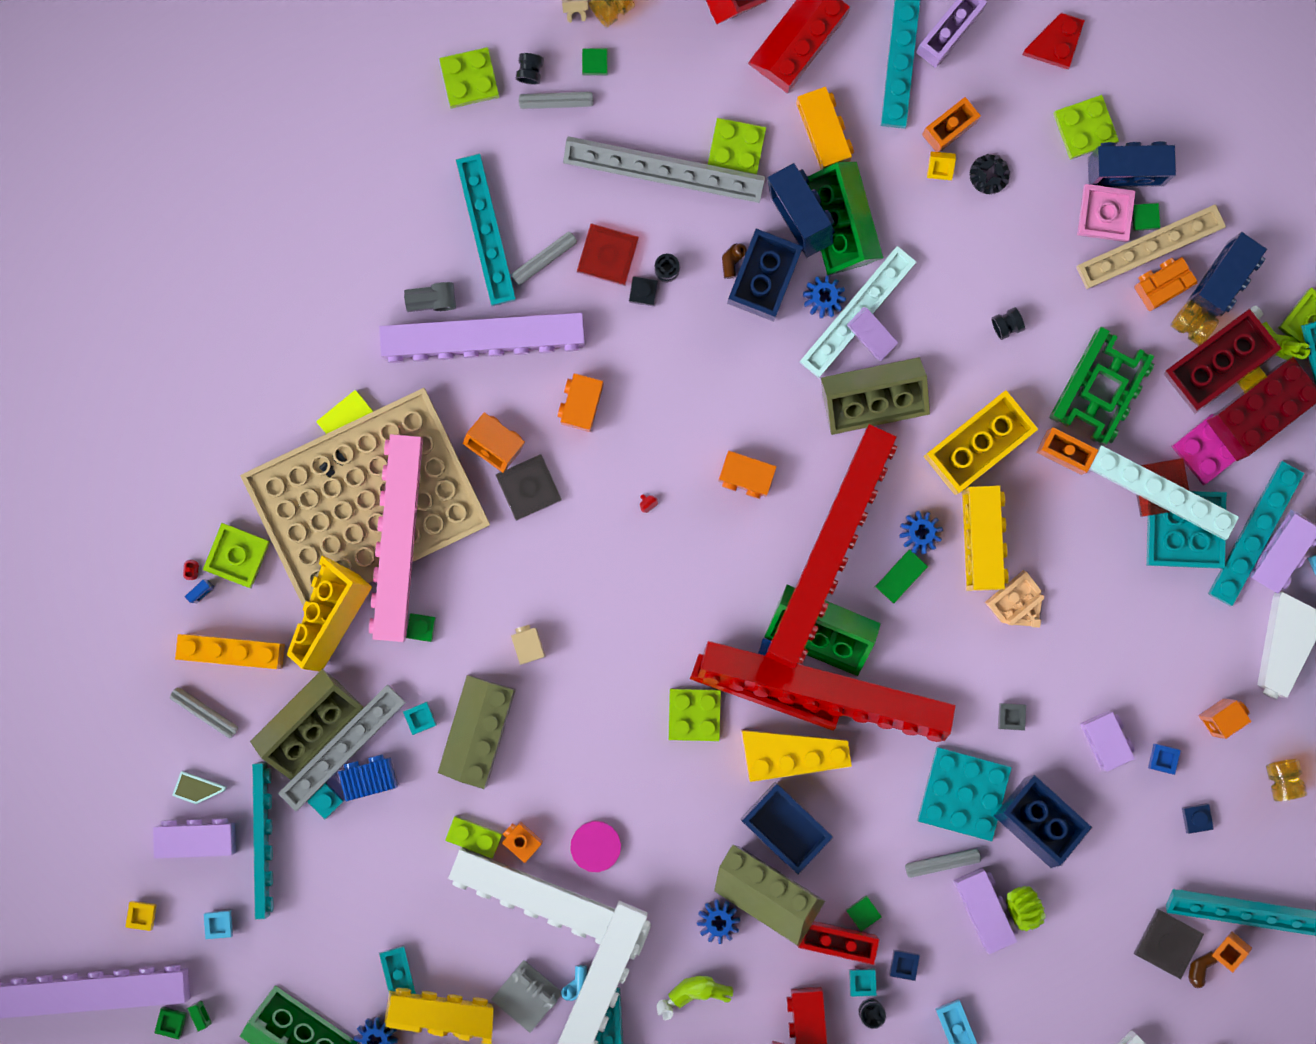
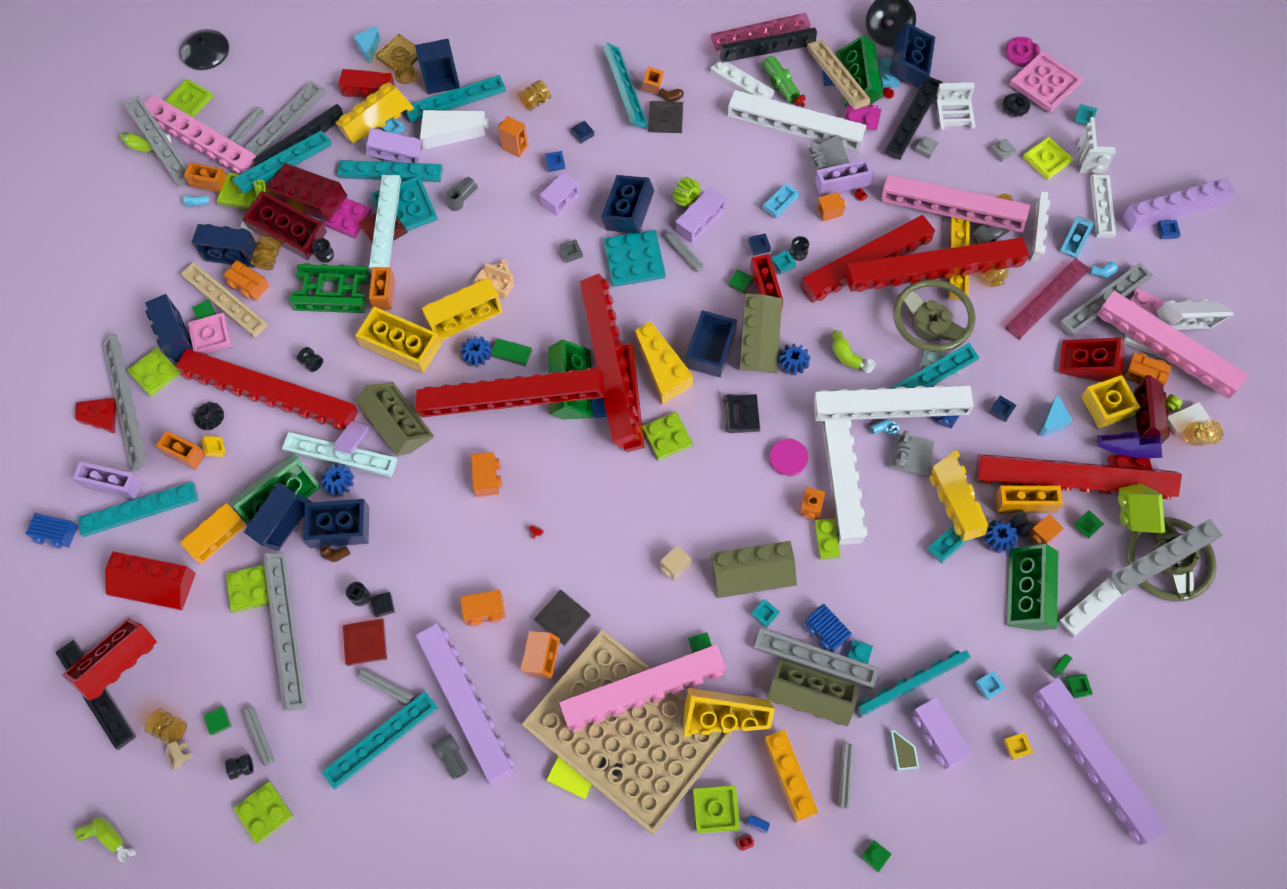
camera: 115 degrees left, 20 degrees down
(109, 699) = (875, 856): none -> green plate
(677, 827) = (747, 413): none -> black plate
(990, 255) = (267, 389): none -> red brick
(1057, 78) = (124, 403): none -> light grey plate
(1169, 395) = (323, 250): none -> black wheel
(1173, 613) = (457, 195): none -> dark grey piece

